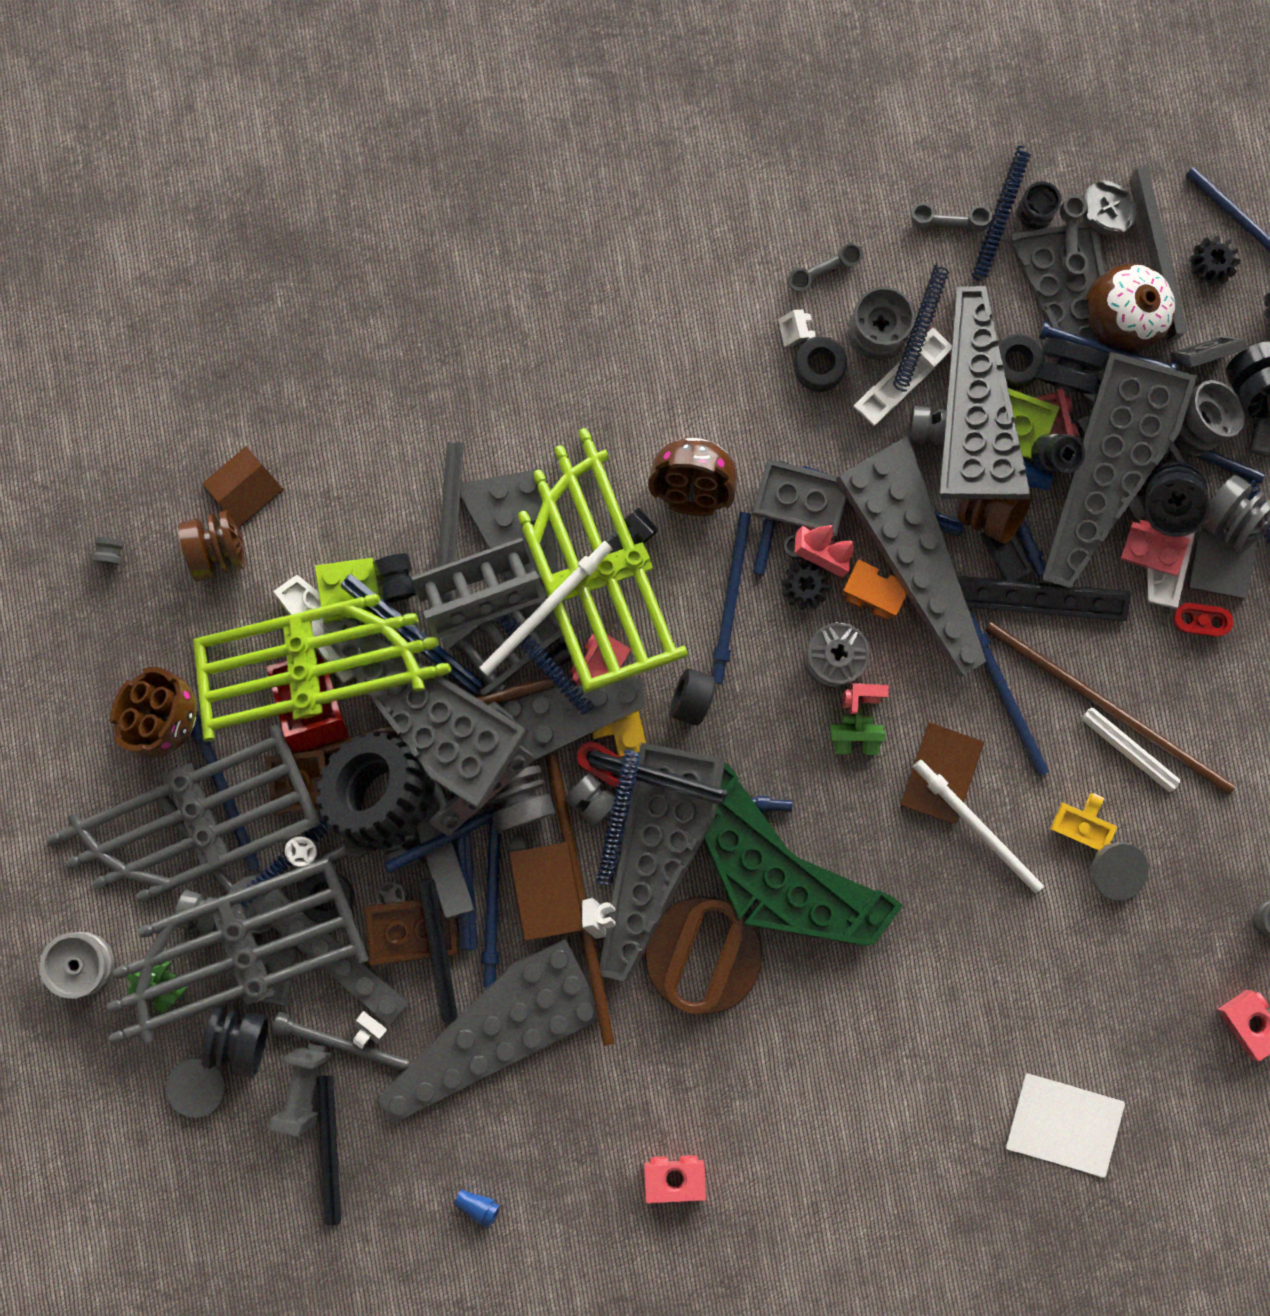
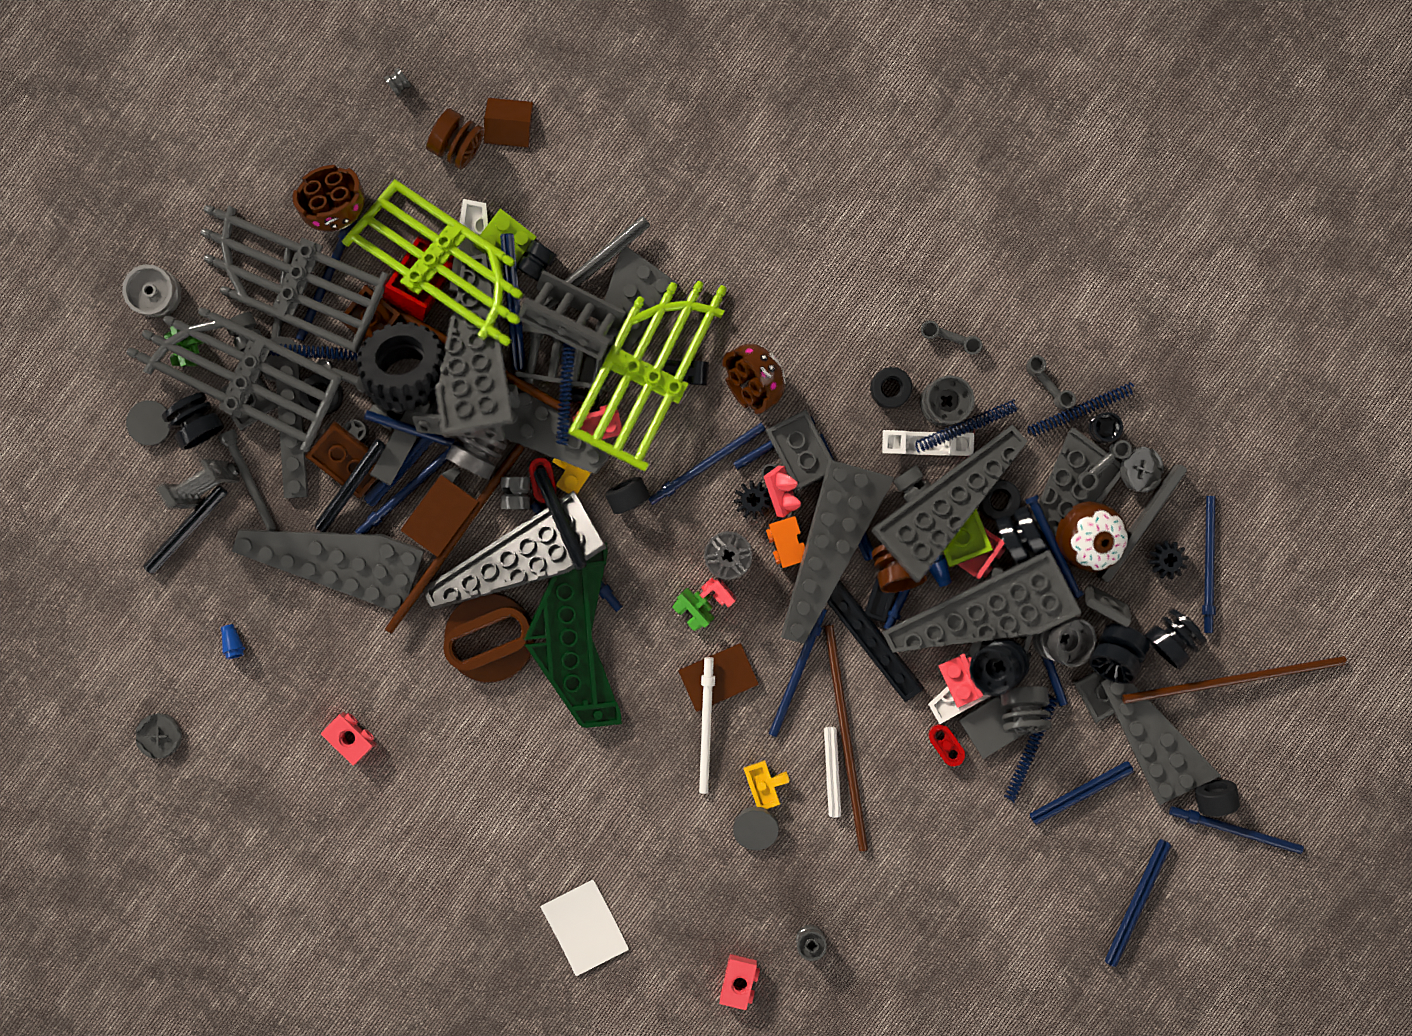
camera: 40 degrees right, 5 degrees up
(303, 854) = (330, 360): white wheel -> none
(368, 1029) = (270, 489): white tile -> none
(586, 567) = (641, 365): white bar -> none
(595, 919) = (451, 557): white tile -> none
(618, 815) = (508, 528): dark blue piece -> none
(794, 328) = (898, 353): white tile -> none
(1058, 453) = (962, 574): black wheel -> none

